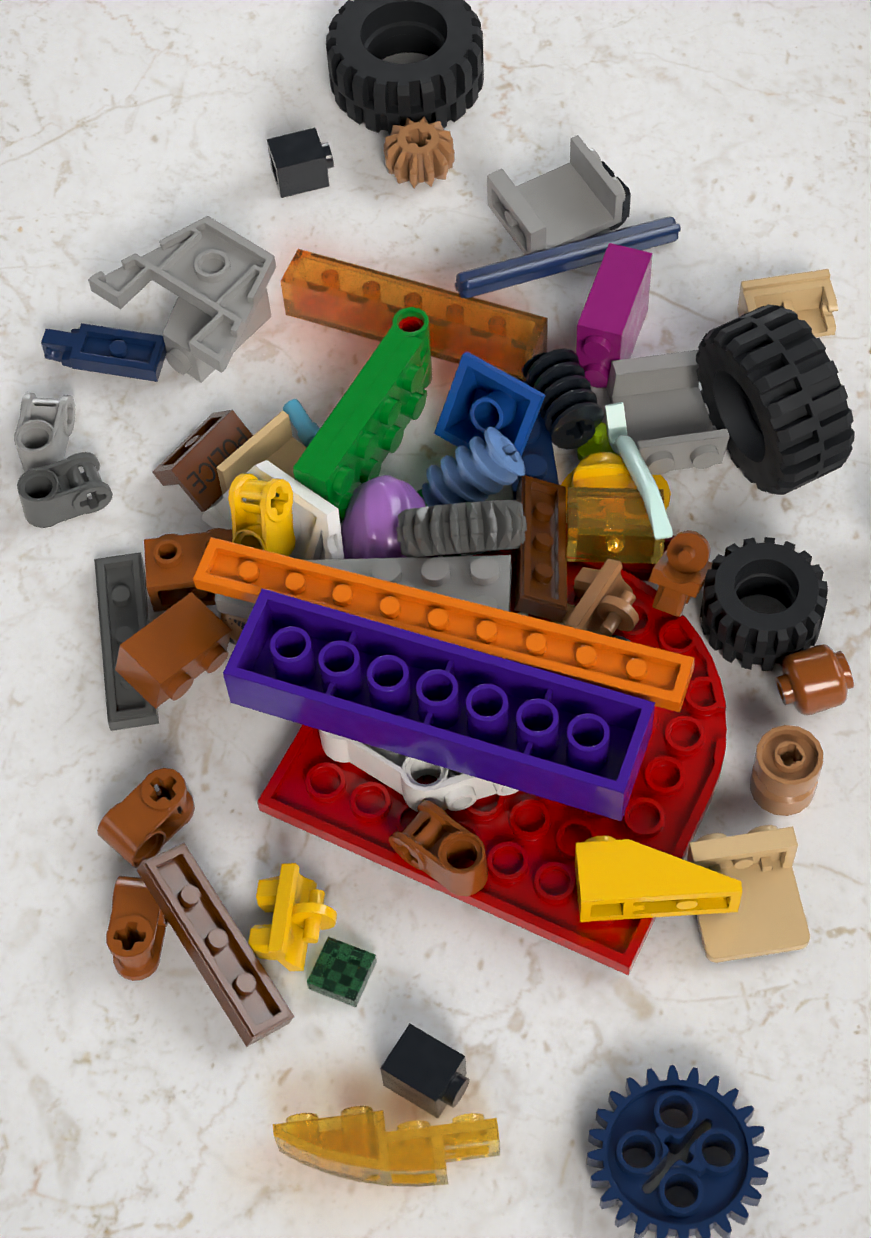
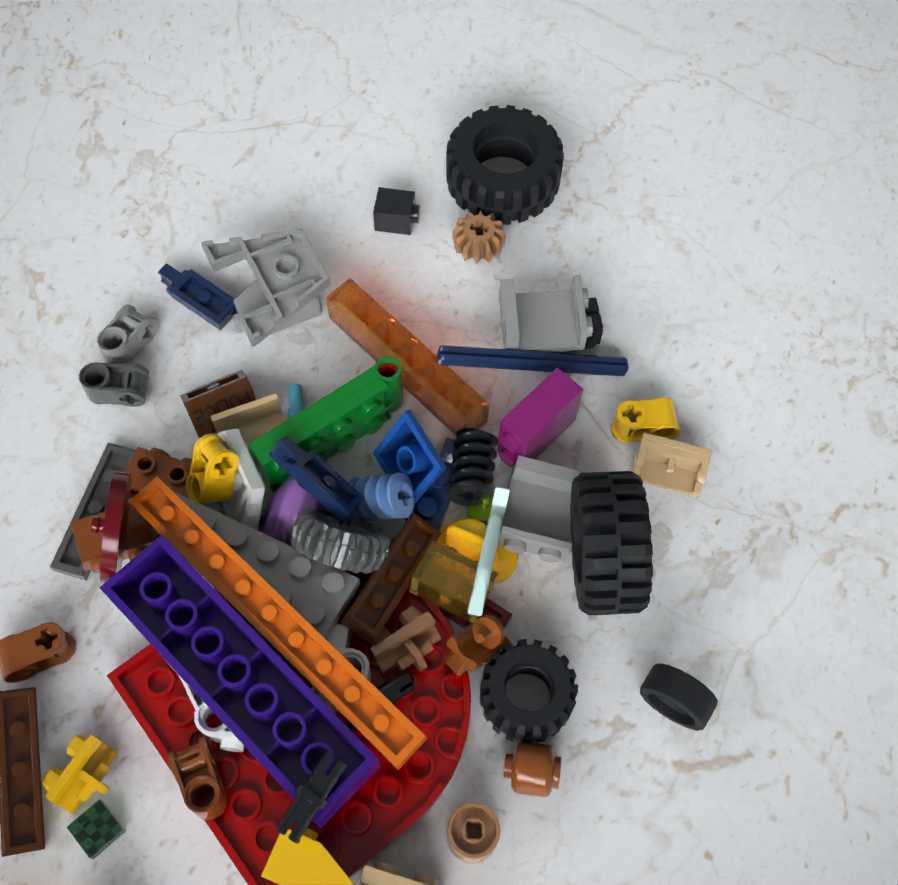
camera: 20 degrees right, 5 degrees up
(196, 608) = (114, 525): none -> dark red piece
(397, 468) = (317, 478): none -> dark blue hinge
(608, 763) = (311, 797): none -> black pin
(725, 268) = (648, 416): none -> yellow piece

